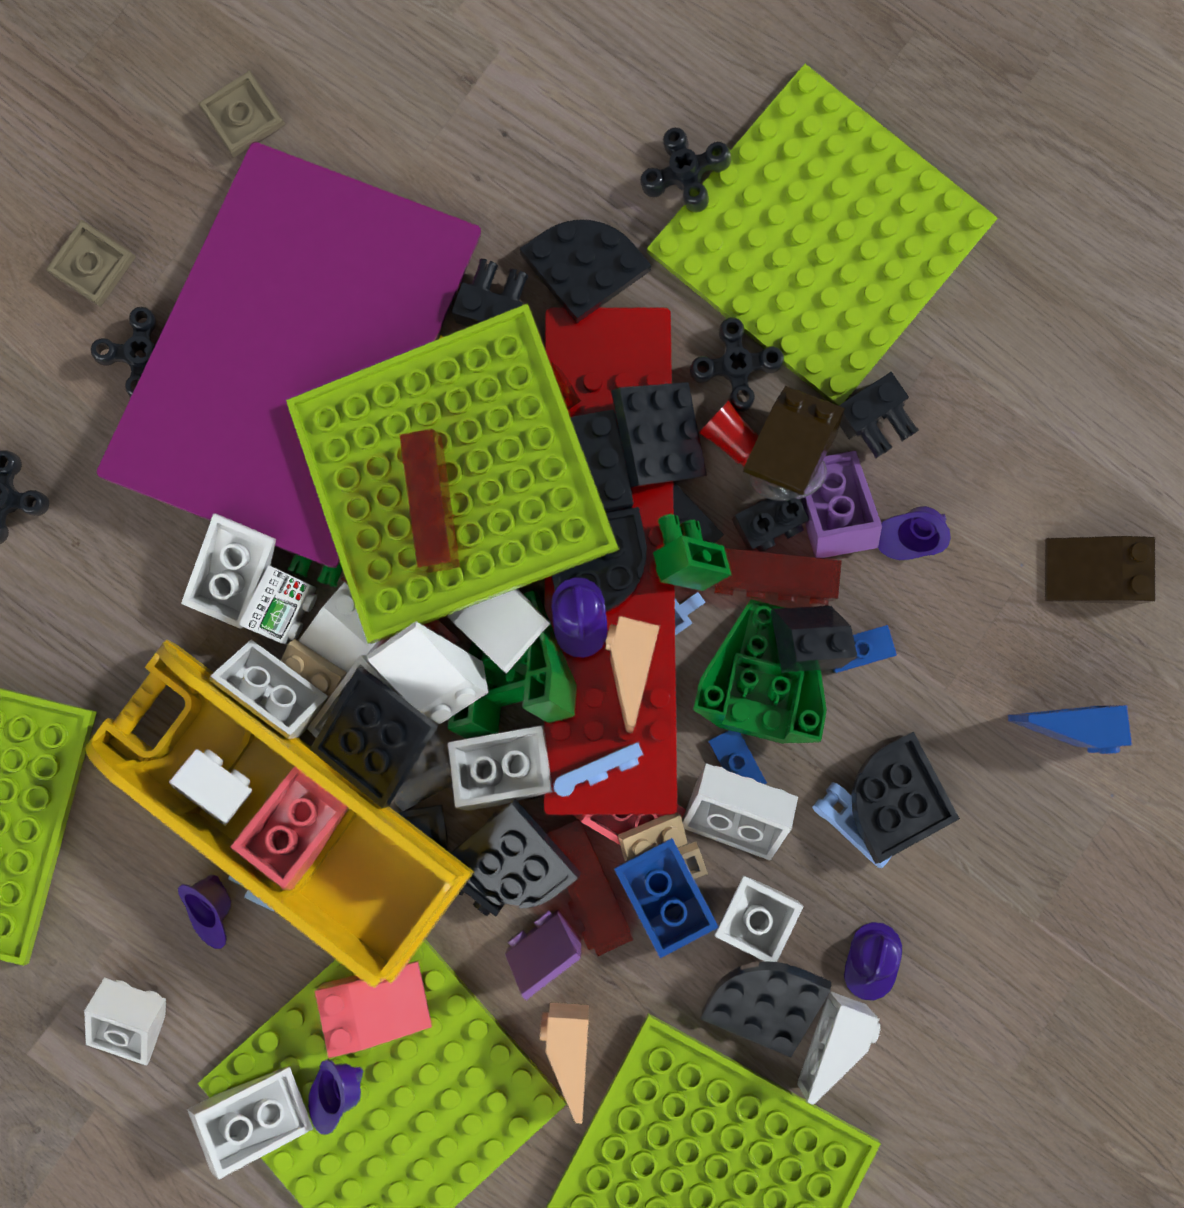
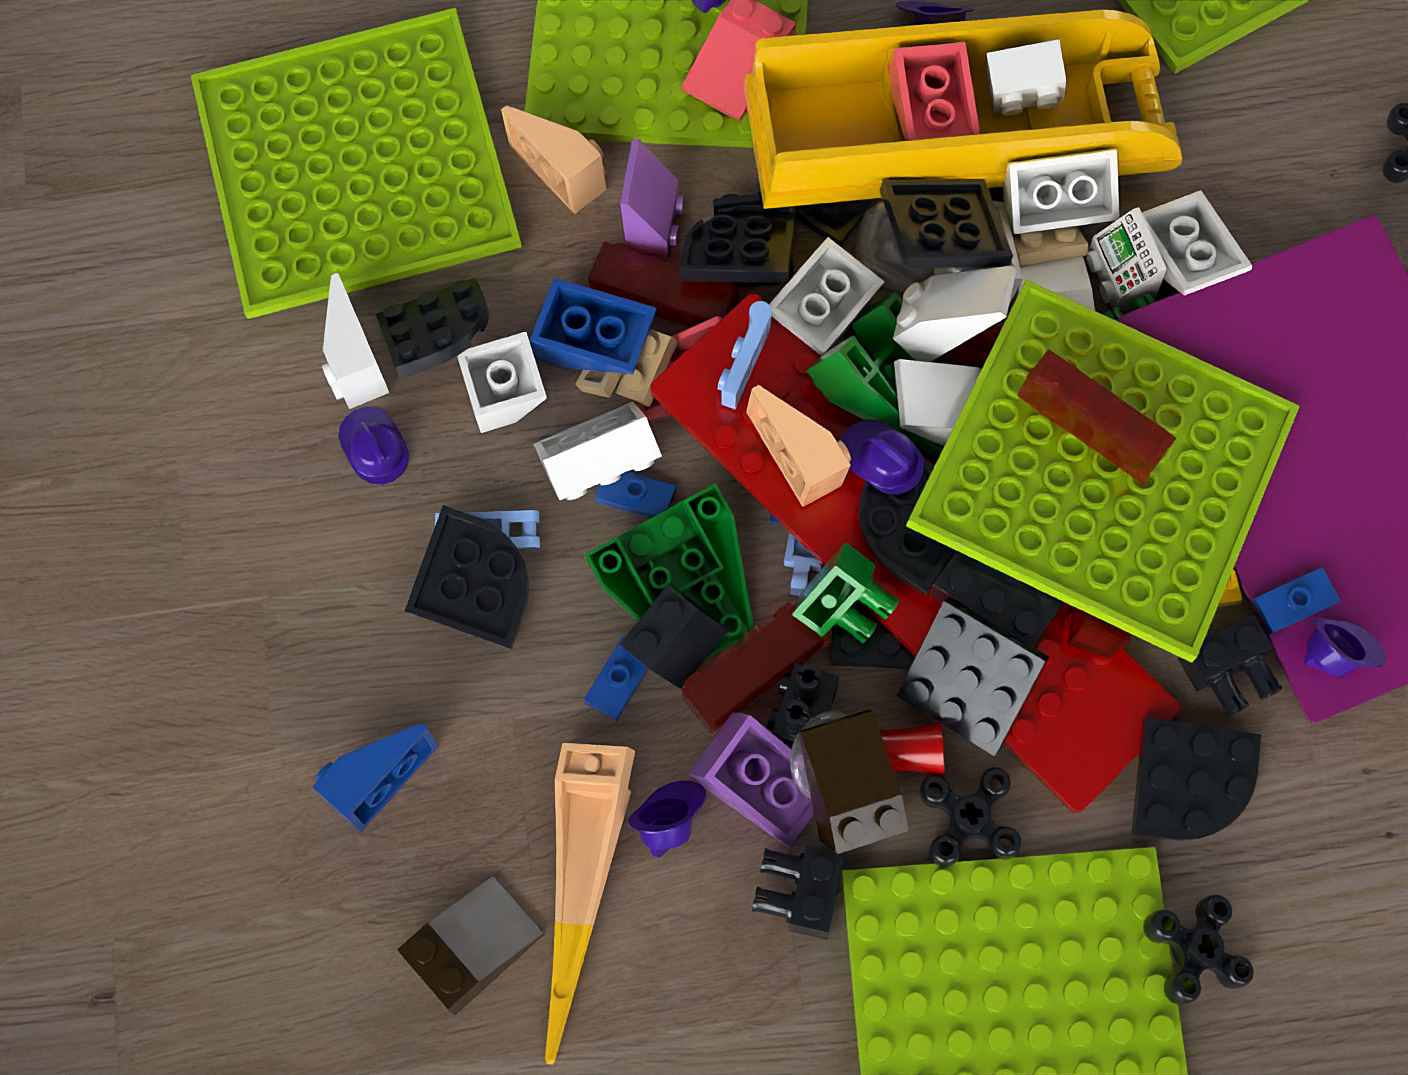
camera: 140 degrees right, 15 degrees down
(416, 297) = (1296, 600): none -> blue plate
(421, 242) = (1342, 648): none -> dark purple piece
(962, 576) = (589, 817): none -> light nougat plate

